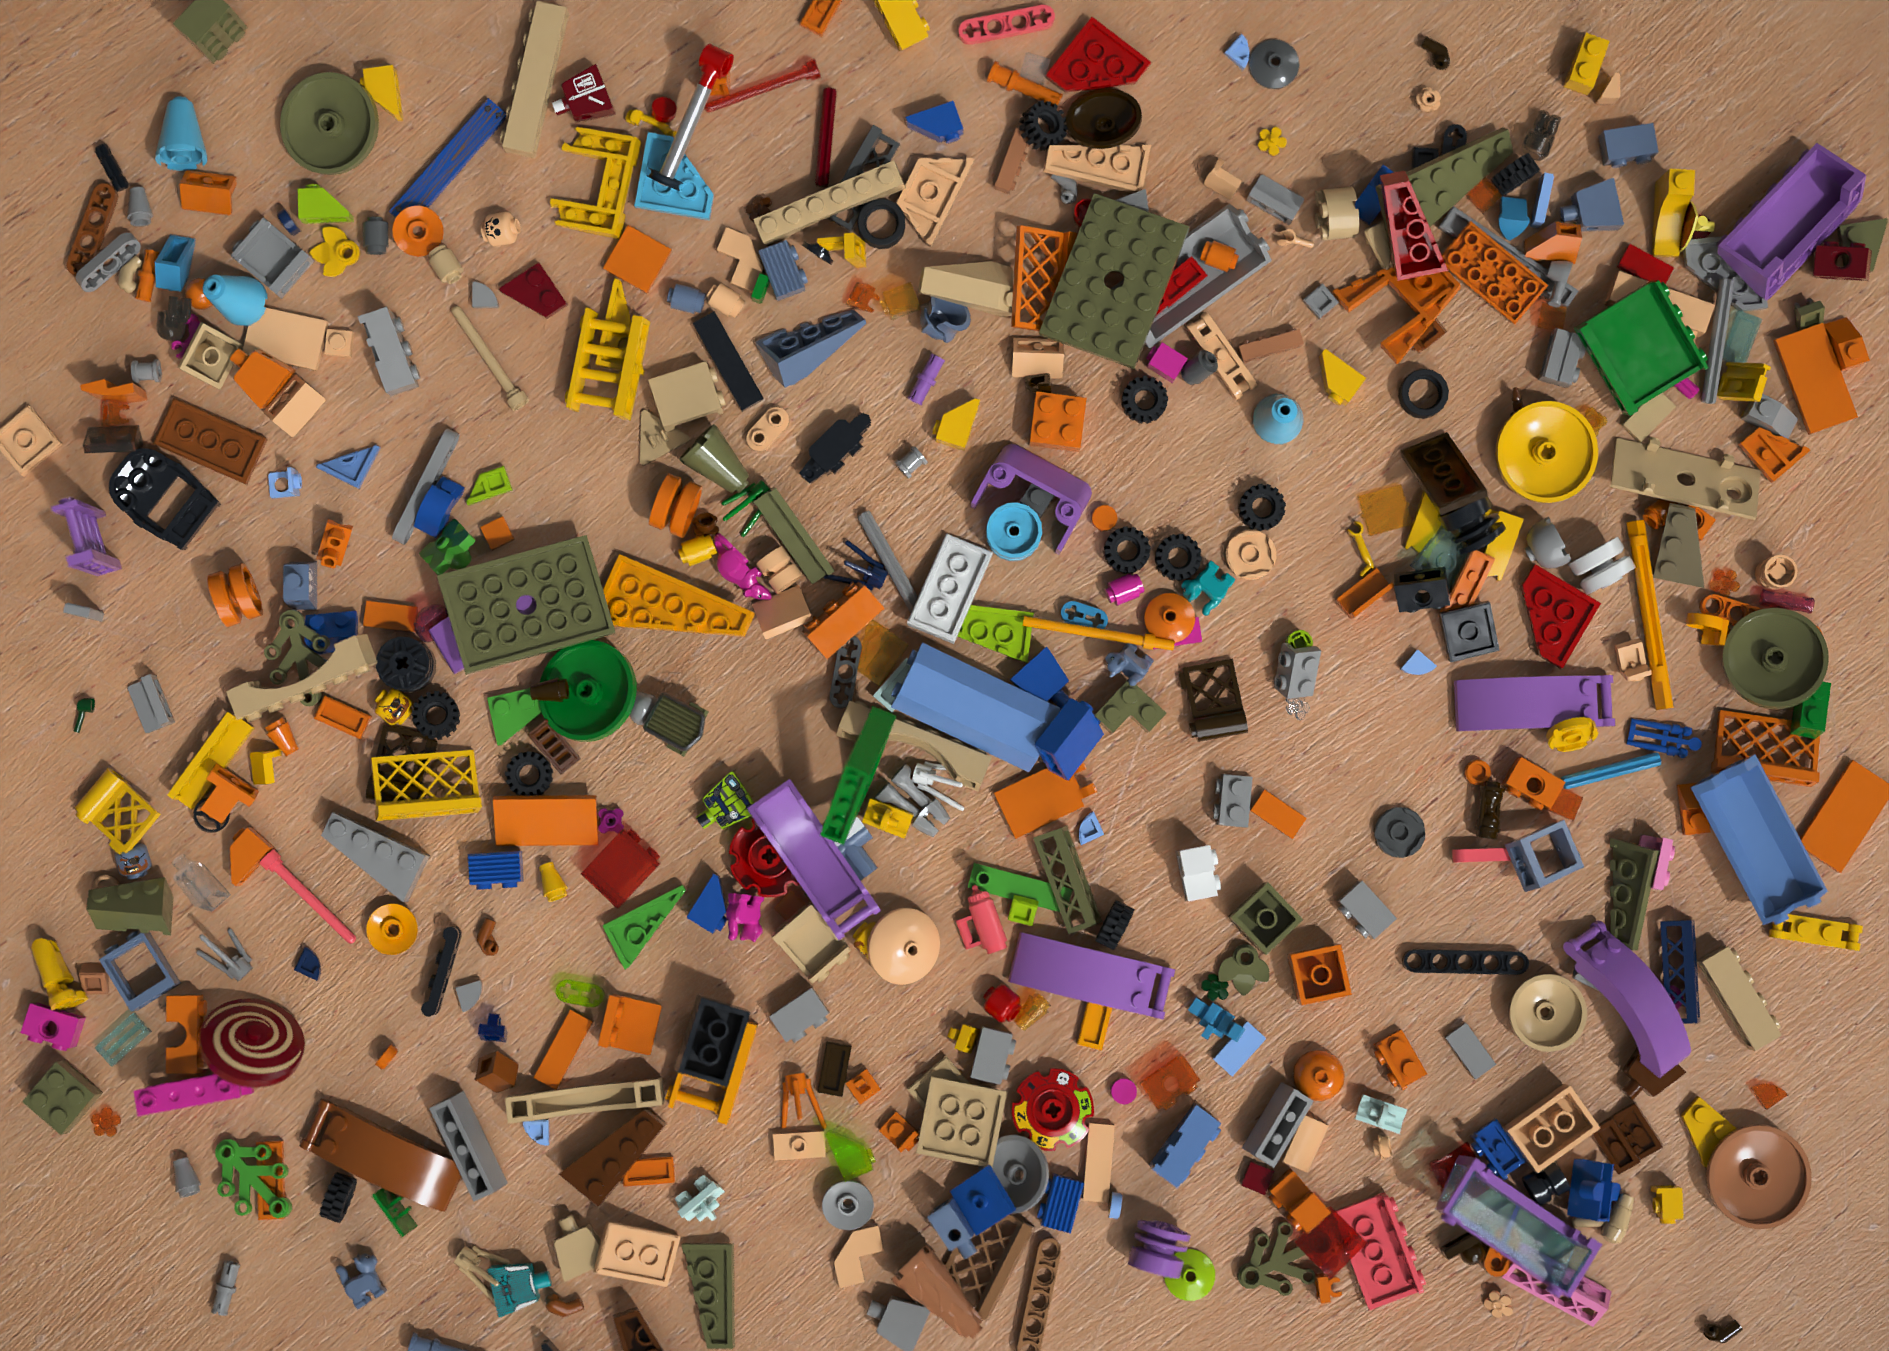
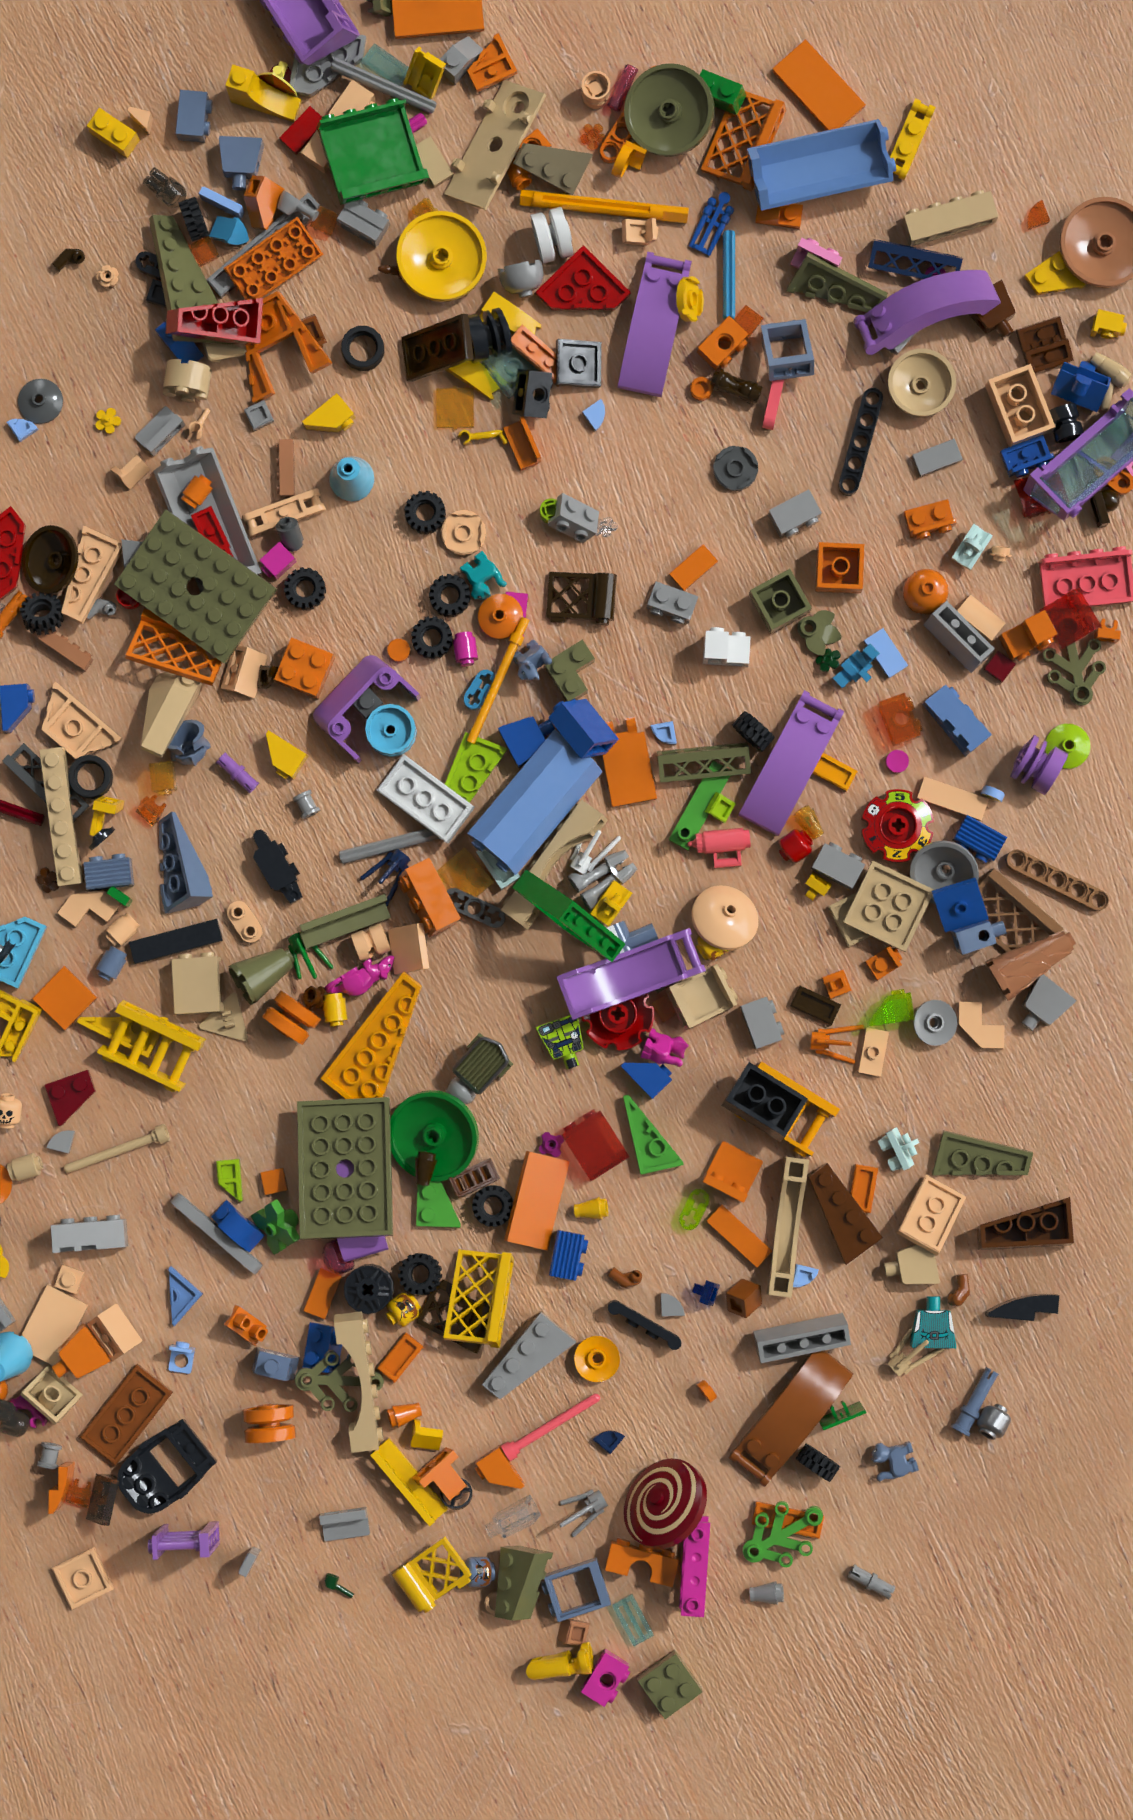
camera: 70 degrees left, 0 degrees up
(106, 1122) = (700, 1652): clear orange plant -> none

